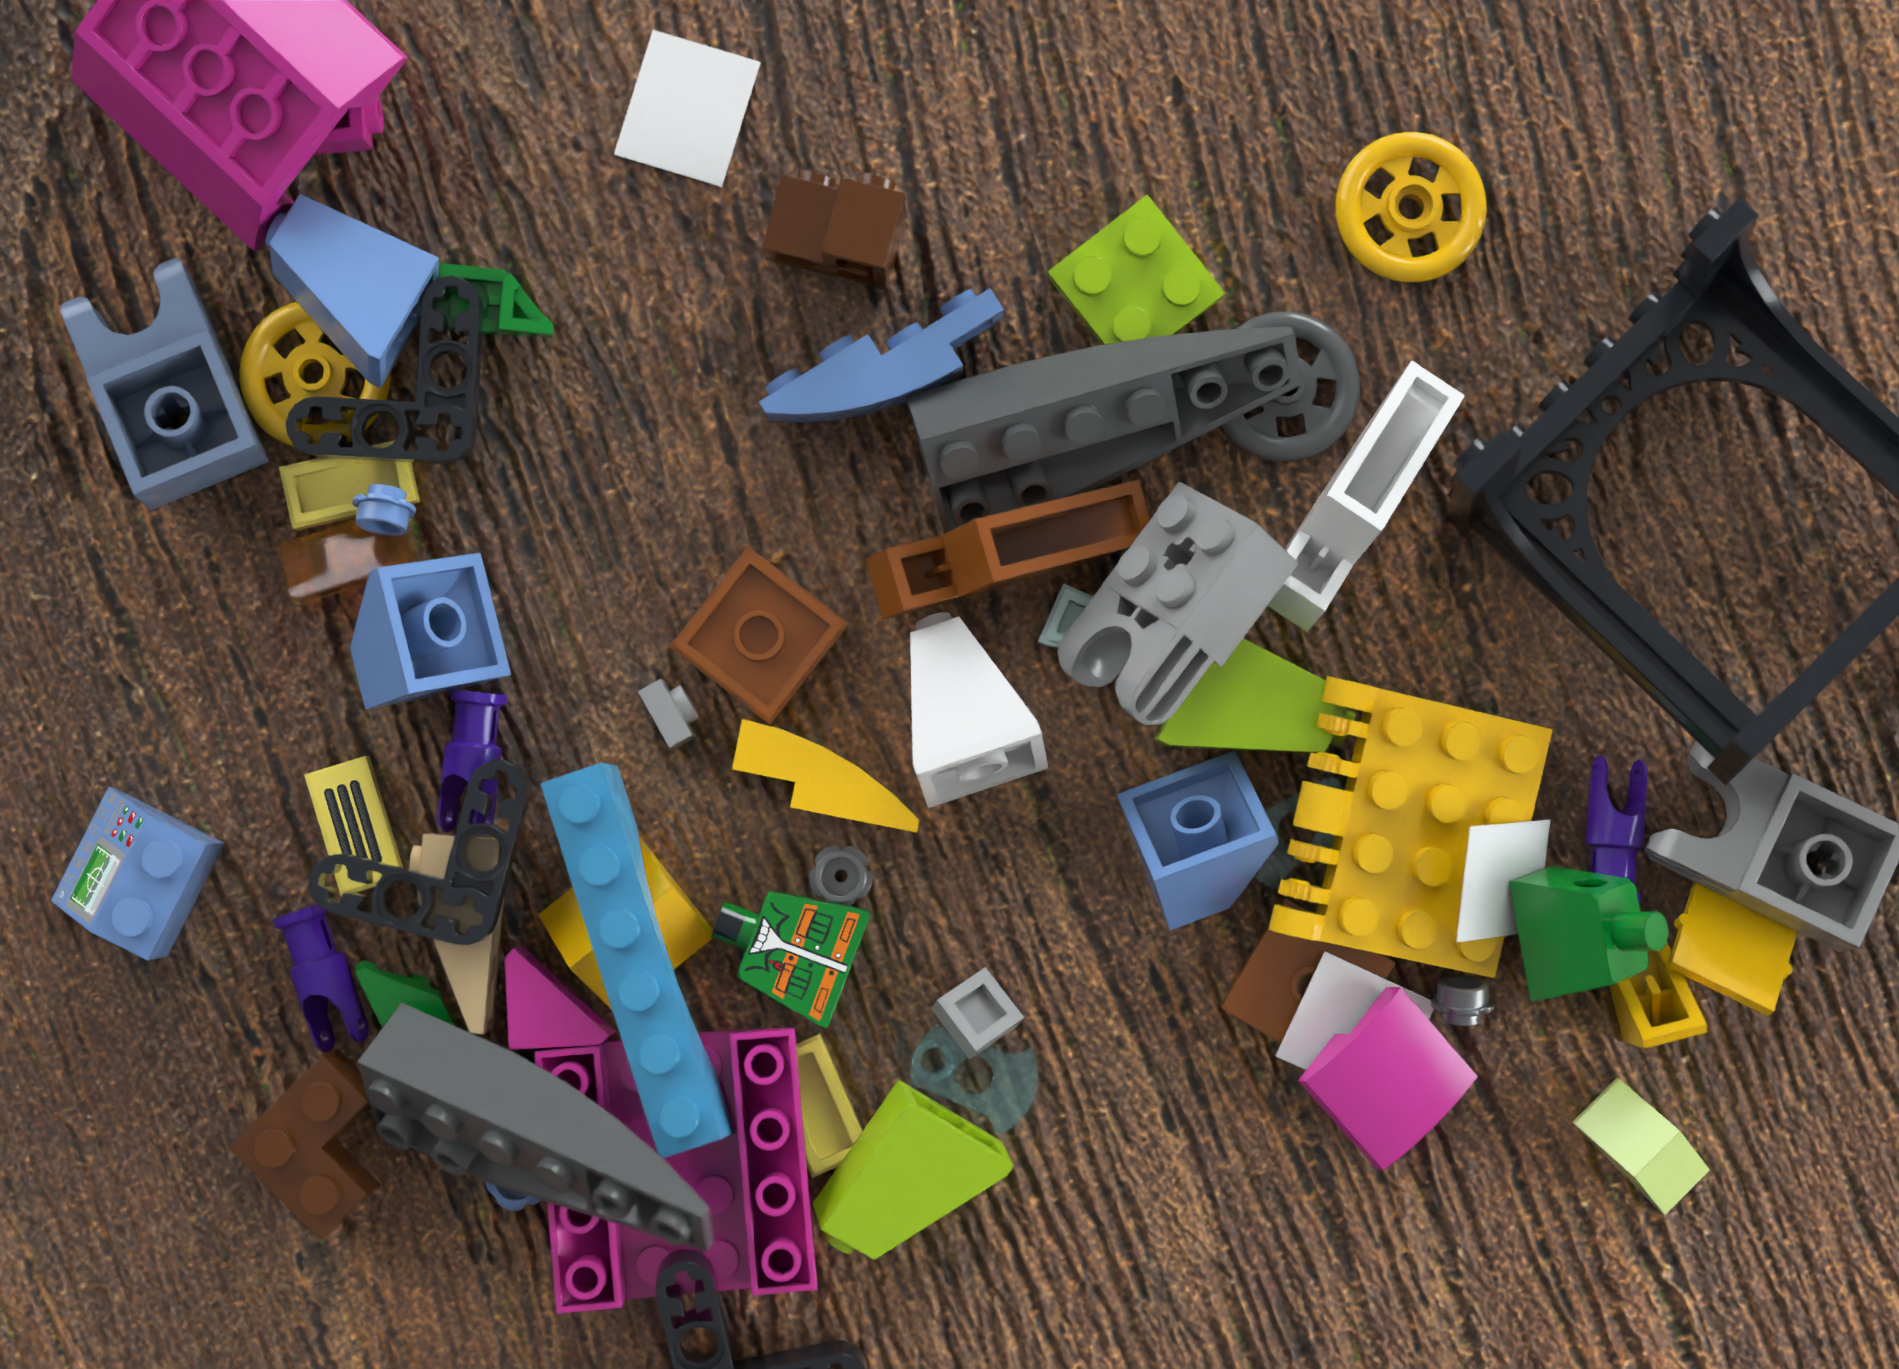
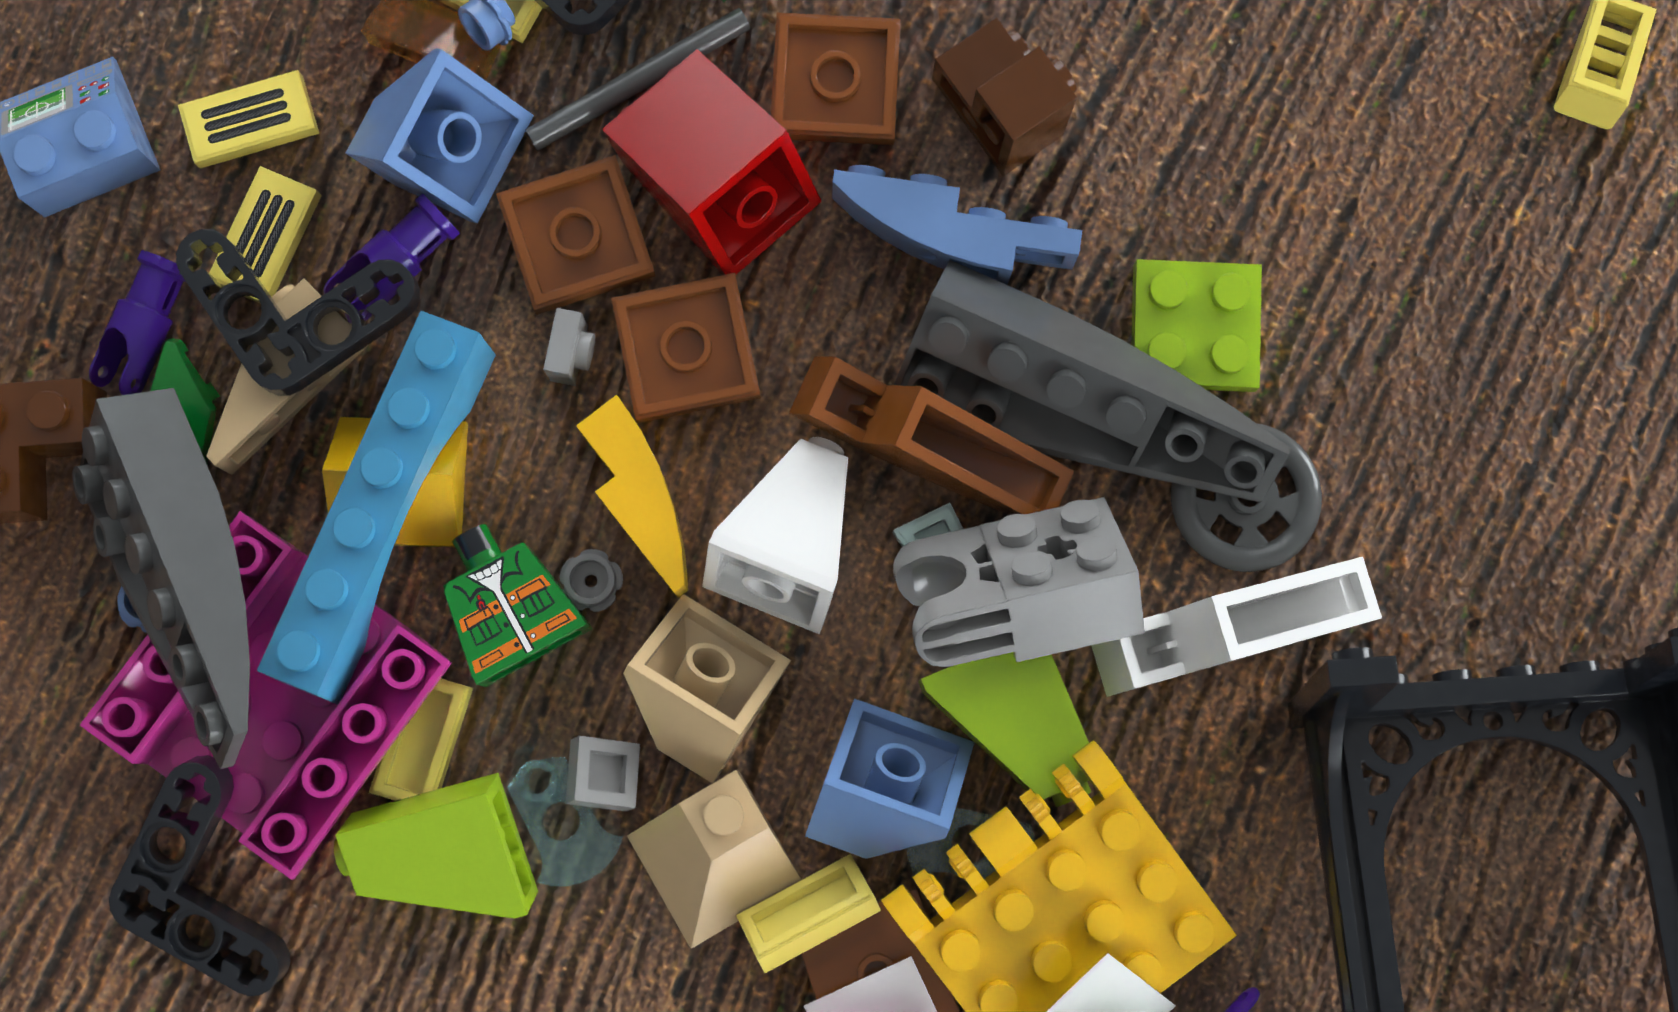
camera: 40 degrees right, 5 degrees down
(260, 745) = (248, 119): none -> light yellow tile
(537, 454) = (635, 80): none -> dark grey bar
(545, 1010) = (281, 487): dark pink slope -> none
(597, 619) = (575, 235): none -> dark orange plate
(656, 473) = (714, 162): none -> red slope
(693, 325) = (836, 77): none -> dark orange plate
(995, 882) = (701, 685): none -> tan slope
(1114, 1004) = (713, 857): none -> tan slope
(1220, 984) = (808, 913): none -> light yellow tile
(1454, 177) = (1476, 392): yellow plate -> none

